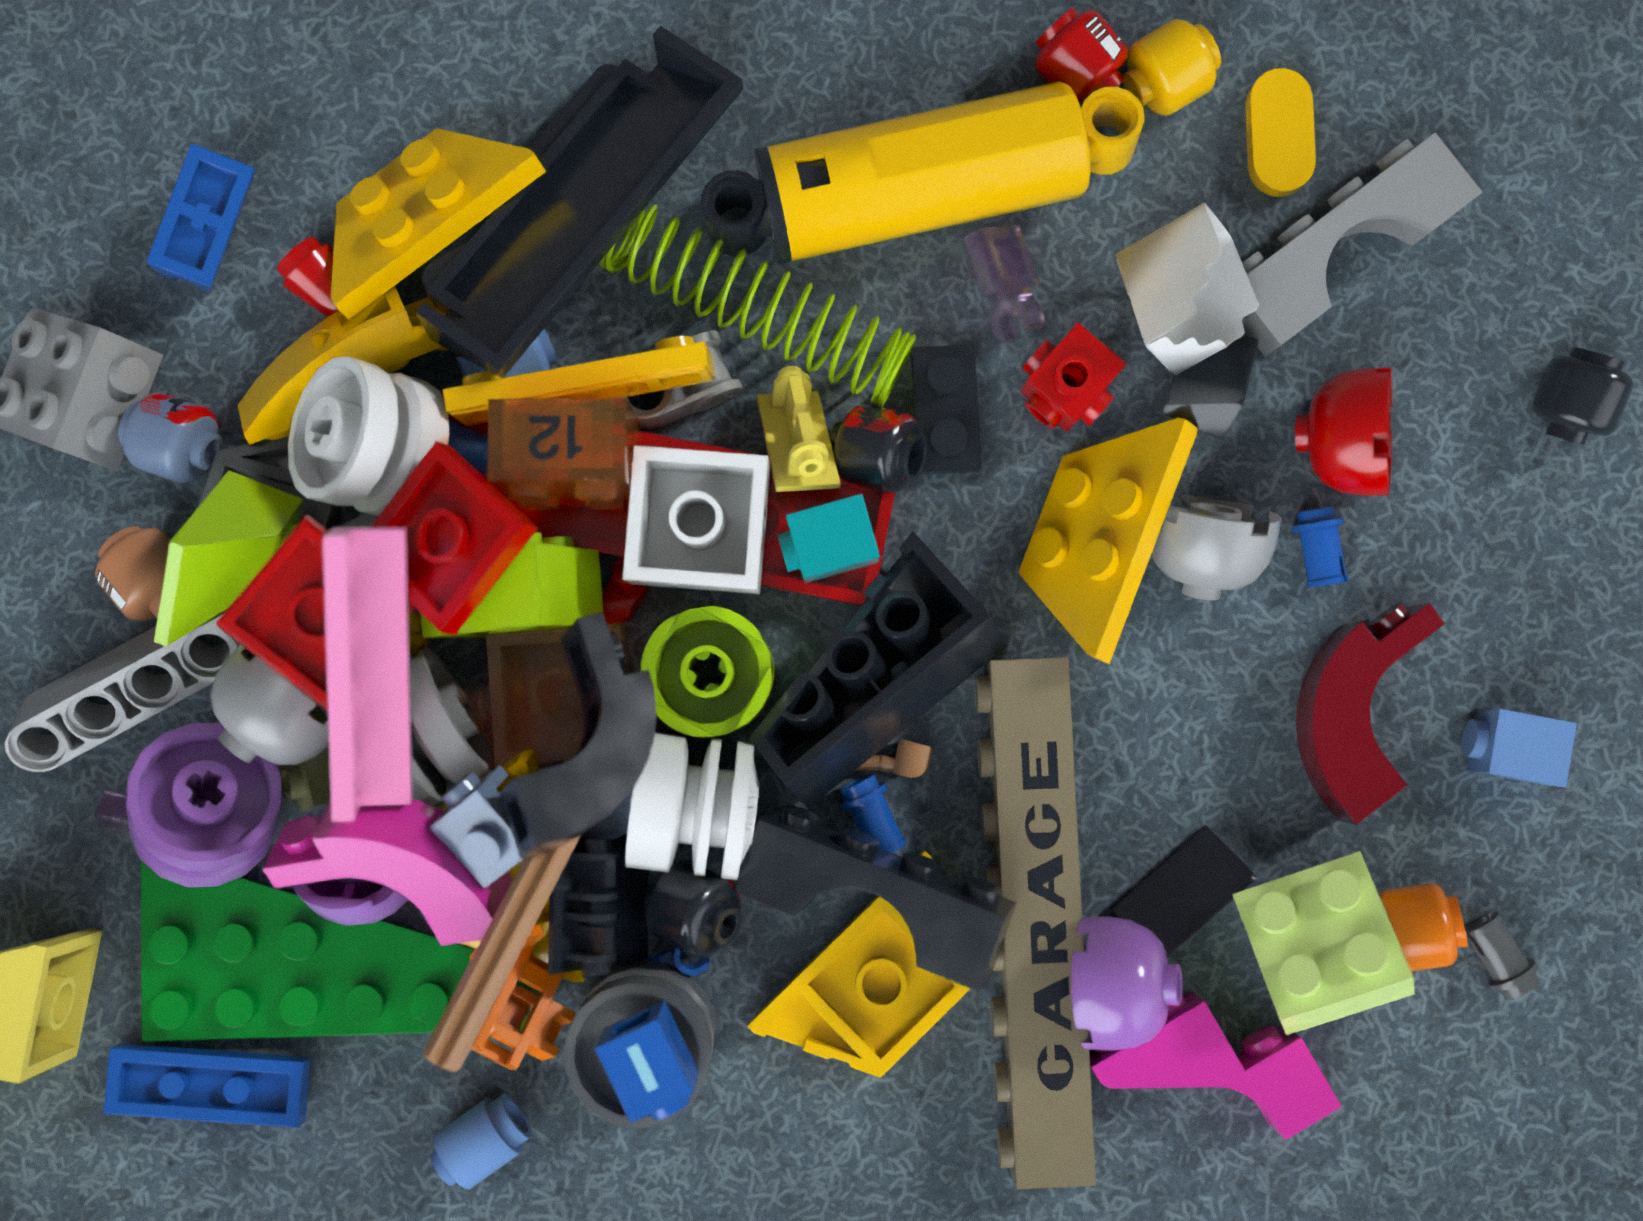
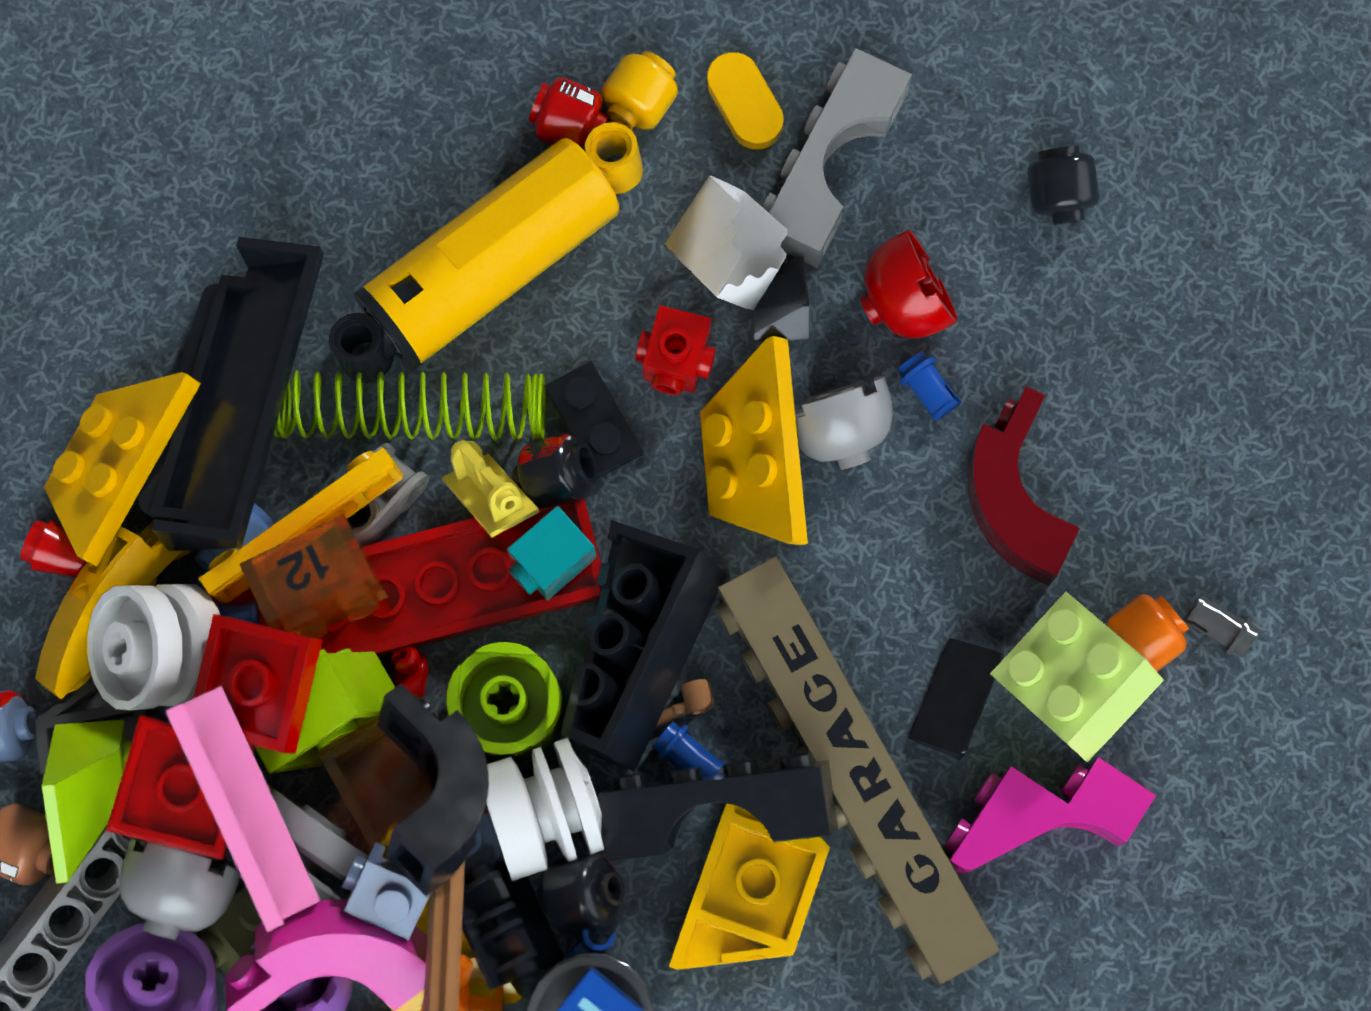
camera: 25 degrees left, 10 degrees down
(697, 520) = (441, 587): white brick -> none
(1006, 271) = (591, 296): clear purple plate -> none
(1121, 984) = (939, 782): medium lavender cylinder -> none
(1519, 746) = (1151, 462): medium blue brick -> none

